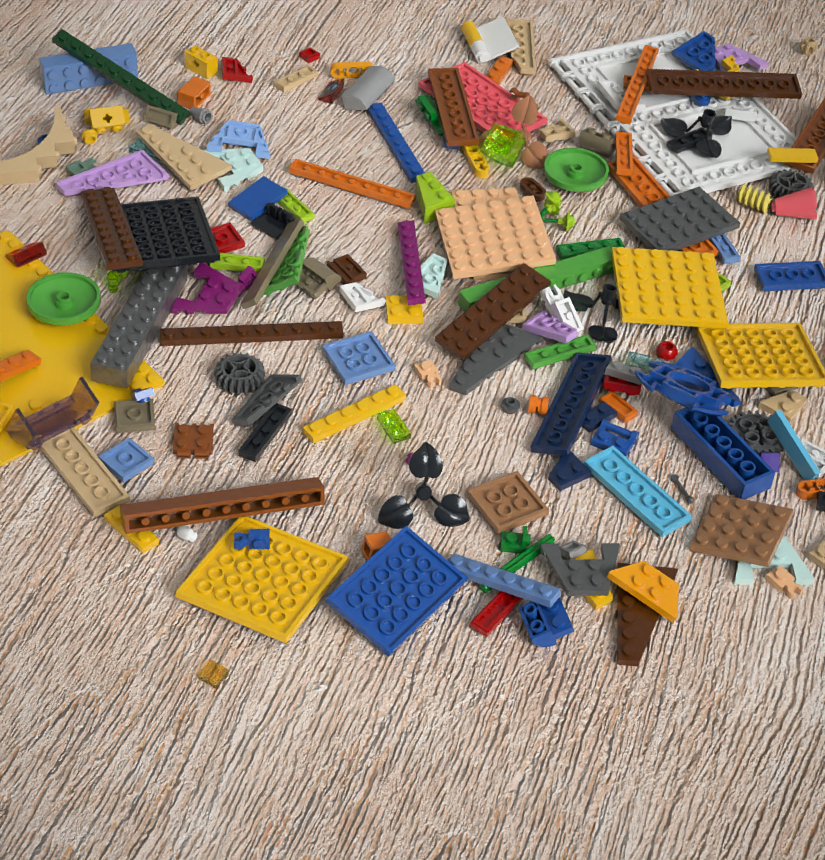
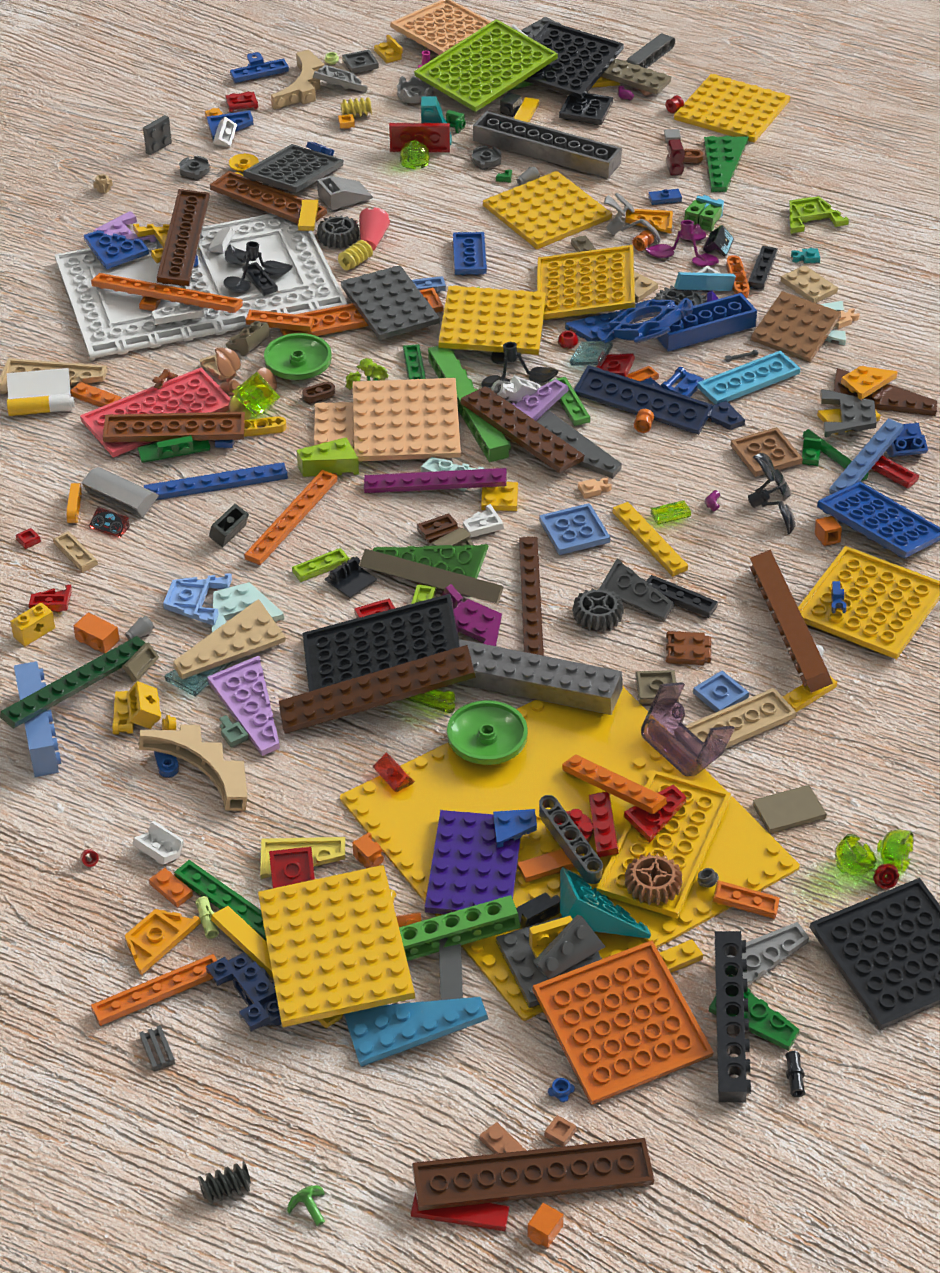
camera: 80 degrees left, 0 degrees up
(142, 395) = (638, 674): plate -> none
(253, 200) = (310, 587): blue tile -> none
(328, 145) = (228, 525): none -> pearl dark grey brick
(510, 405) = (640, 439): dark grey plate -> none
(572, 550) = (818, 420): light grey tile -> none
(621, 371) = (610, 359): light grey plate -> none

